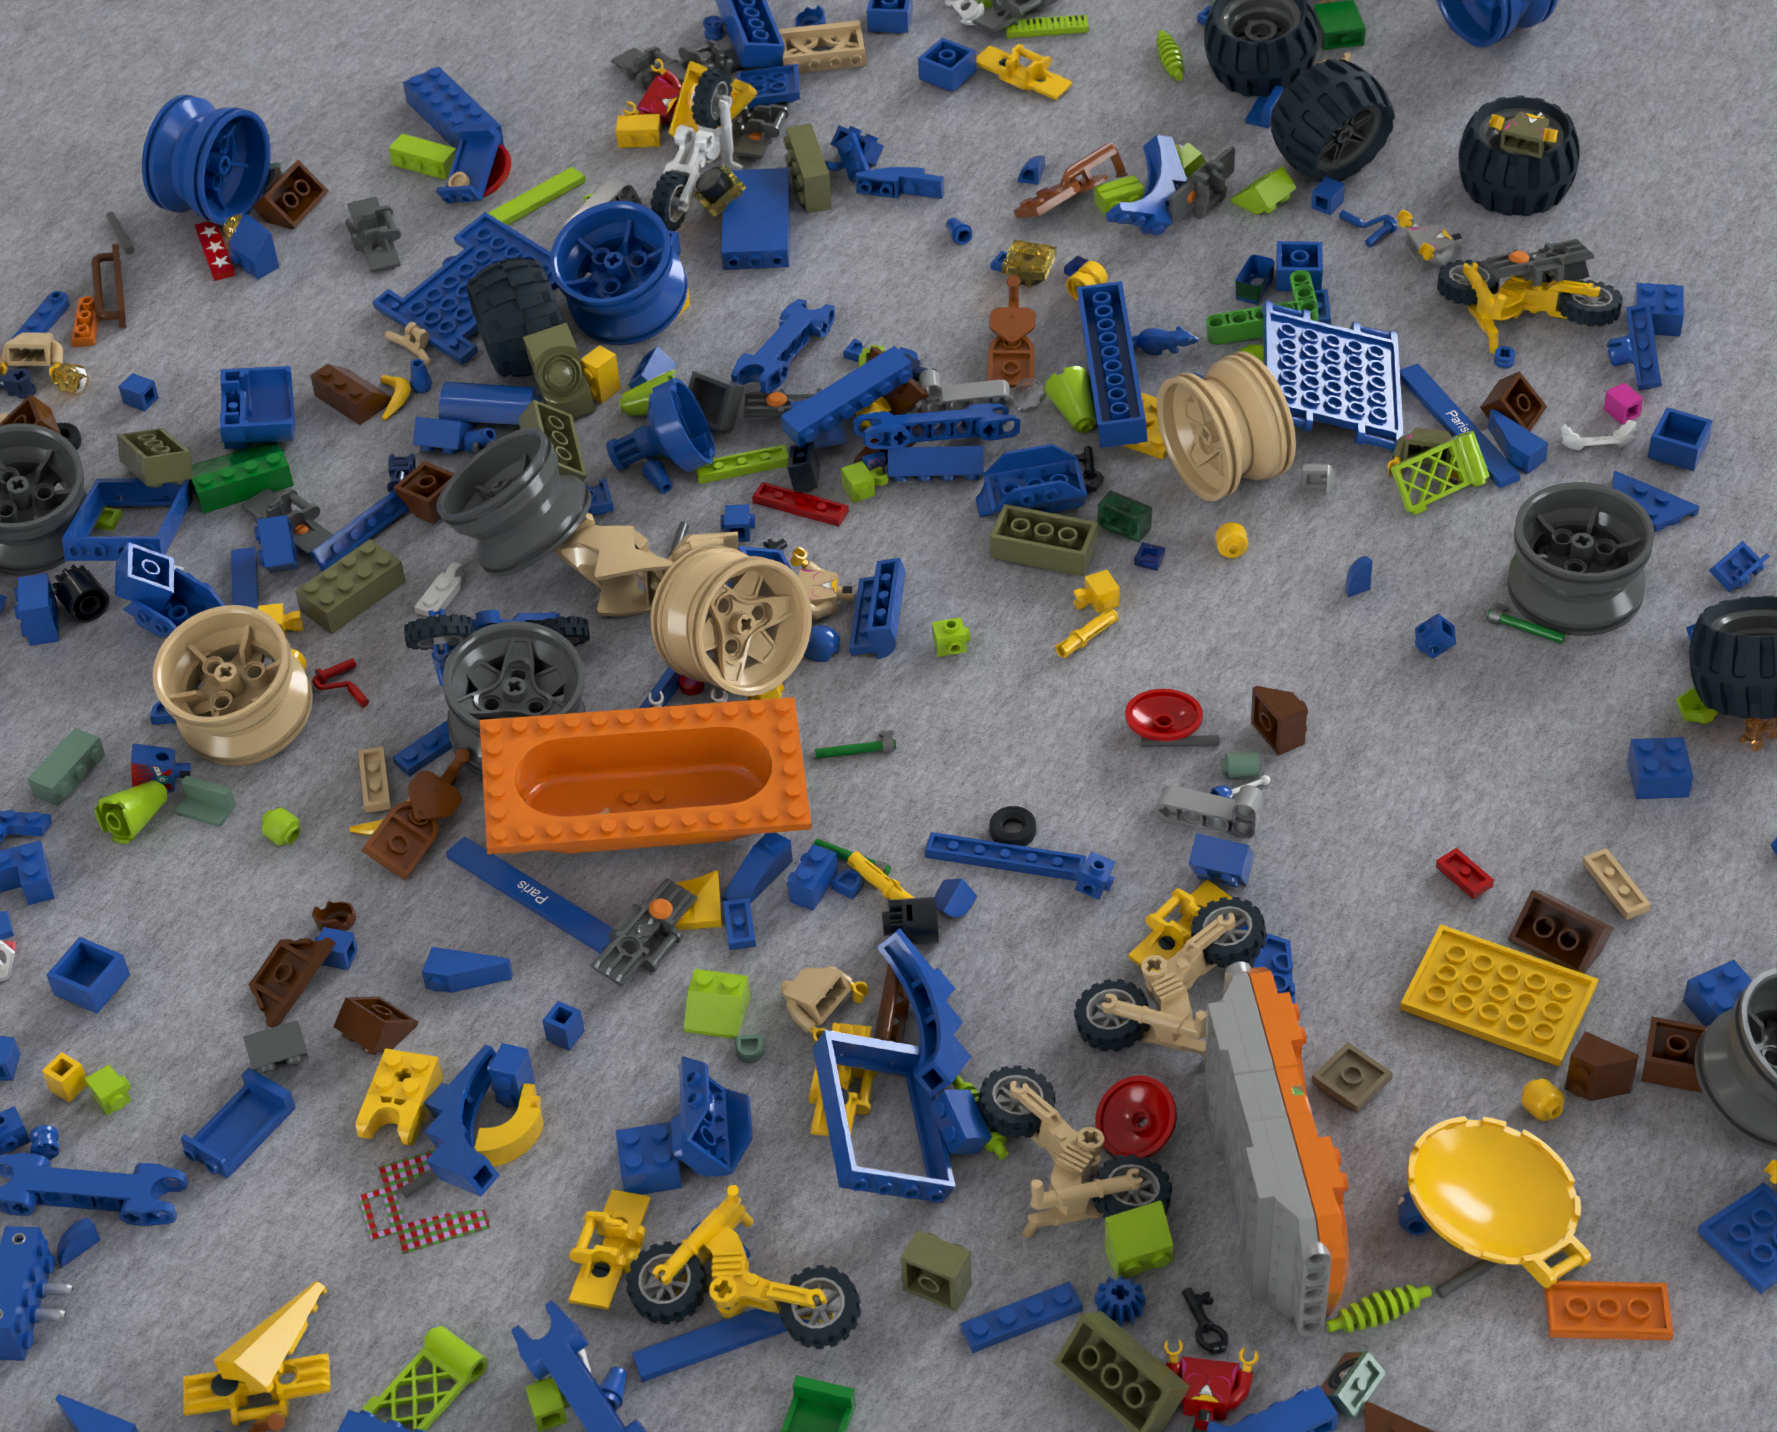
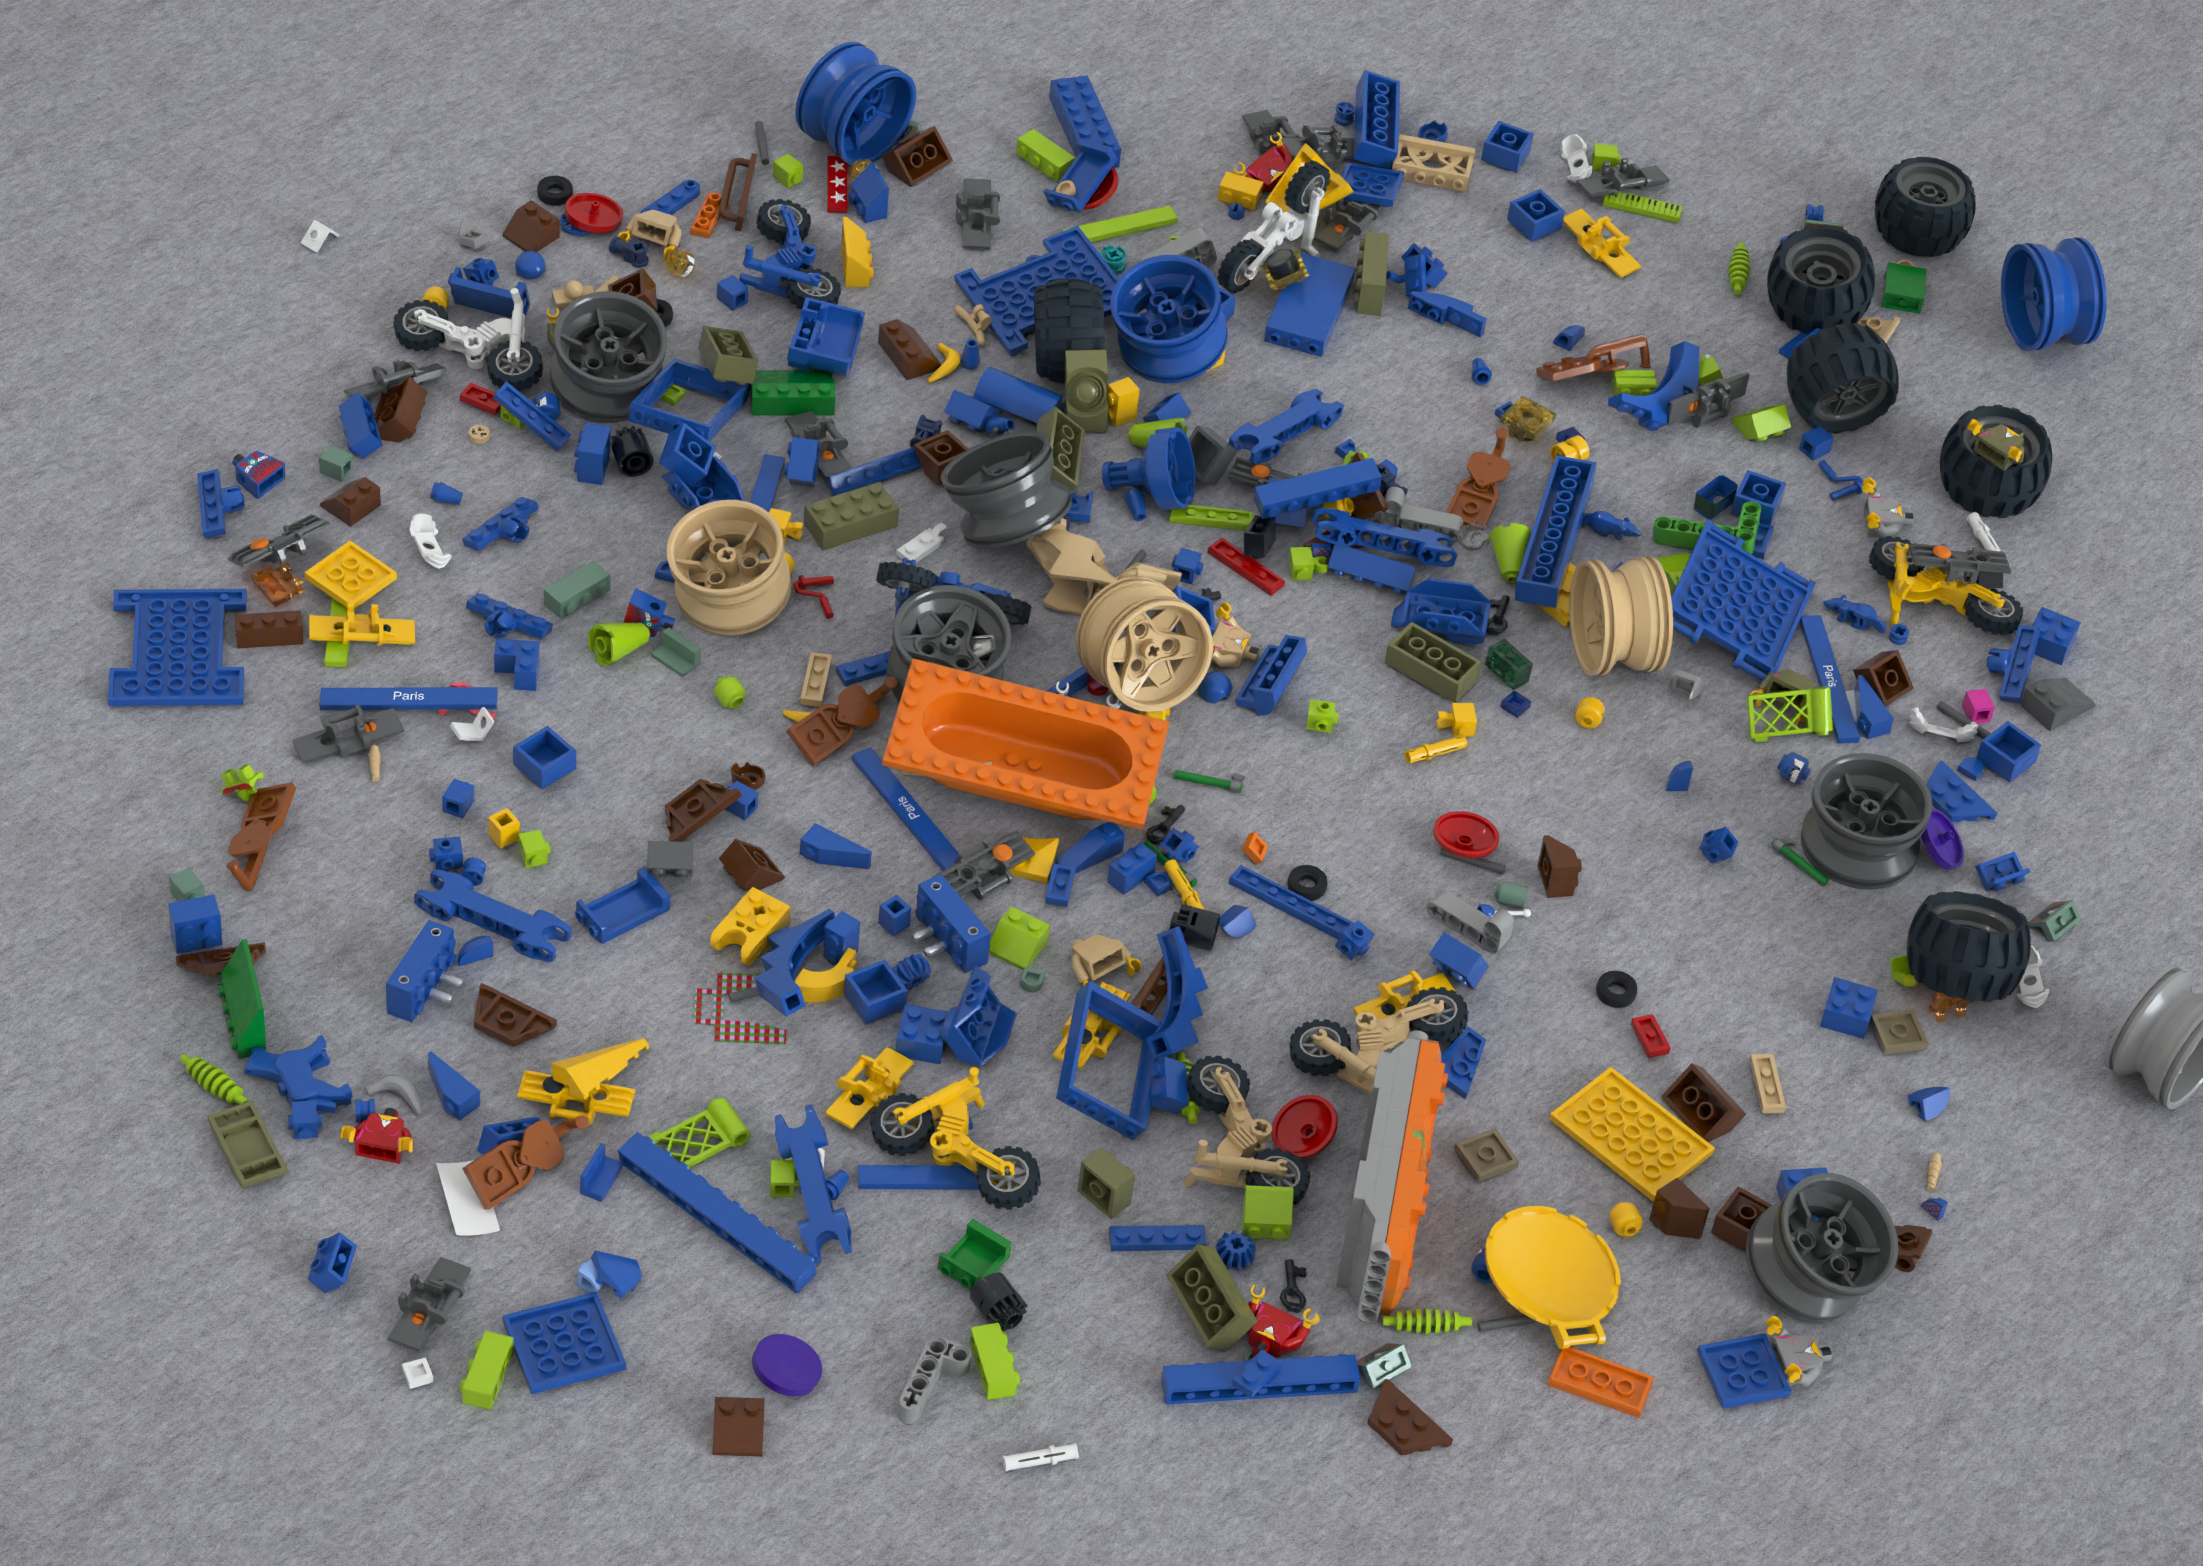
camera: 10 degrees right, 0 degrees up
(143, 1314) = (509, 1018): none -> reddish brown wing
(157, 251) = (788, 170): none -> lime brick
(193, 339) = (789, 226): none -> piece
(259, 313) = (855, 255): none -> yellow slope
(536, 232) = (1115, 258): none -> teal wheel
(574, 1126) = (875, 991): none -> blue piece
(607, 1087) = (913, 970): none -> blue gear
(633, 1013) = (951, 924): none -> blue piece
(638, 155) = (1236, 215): none -> blue hinge
(829, 816) = (1165, 826): none -> black piece
(856, 833) = (1179, 845): none -> blue brick
(939, 807) = (1255, 847): none -> orange plate
(1402, 845) = (1612, 999): none -> black tyre
(1457, 350) = (1859, 614): none -> blue animal
(1471, 528) = (1794, 767): none -> blue head
(1534, 230) = (1981, 532): none -> white pin
(1613, 422) = (1961, 718): none -> dark grey bar
(1648, 468) = (1971, 768): none -> blue tile
(1669, 557) = (1943, 841): none -> dark purple piece
(1696, 375) = (2055, 702): none -> dark grey slope
(1725, 776) = (1898, 1031): none -> dark tan plate

